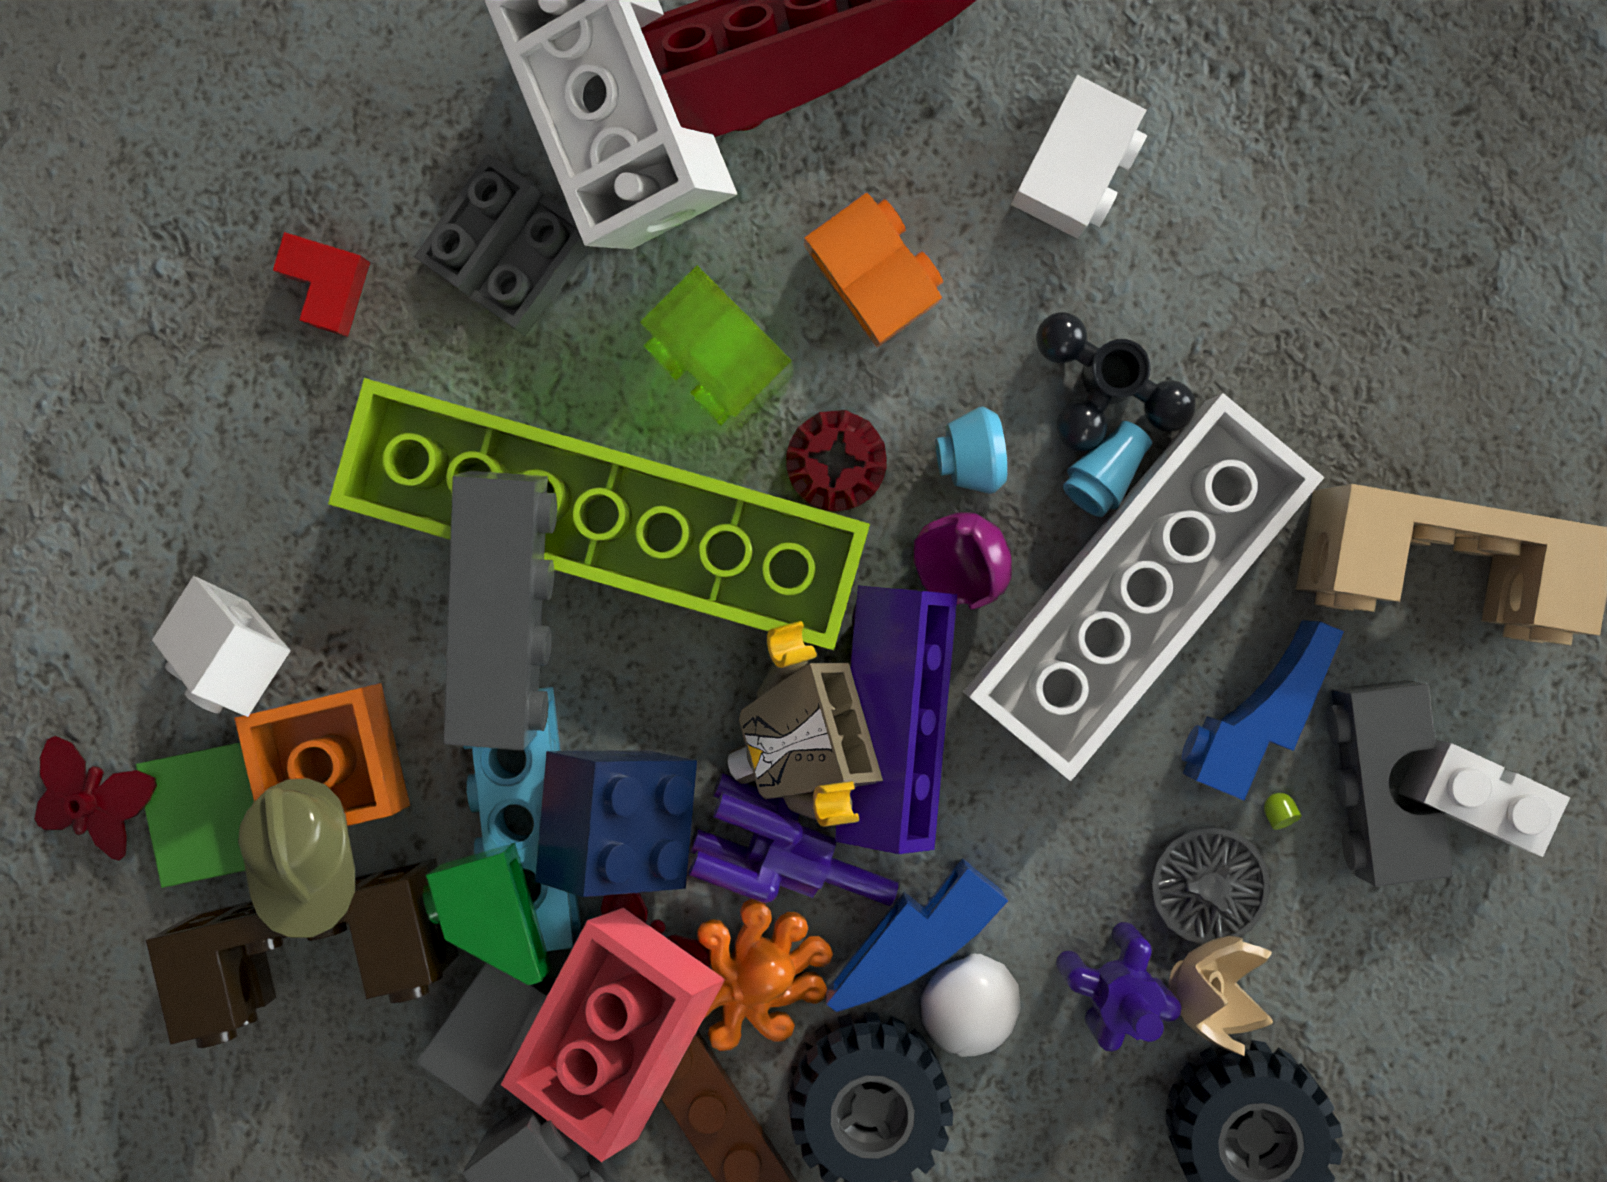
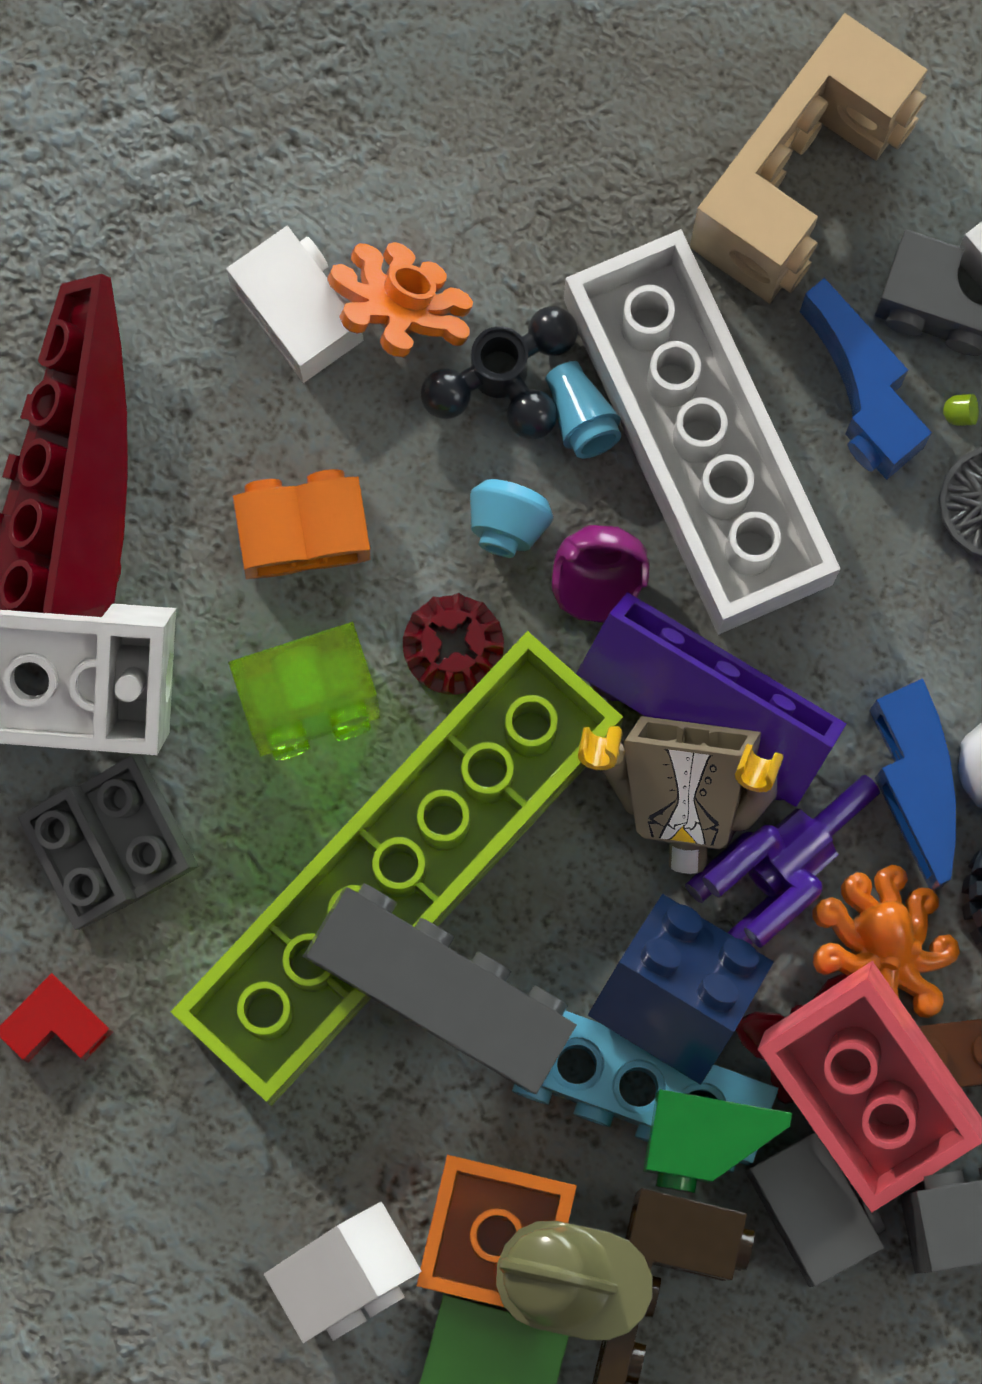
camera: 65 degrees left, 10 degrees down
(1127, 250) = (400, 299): none -> orange animal

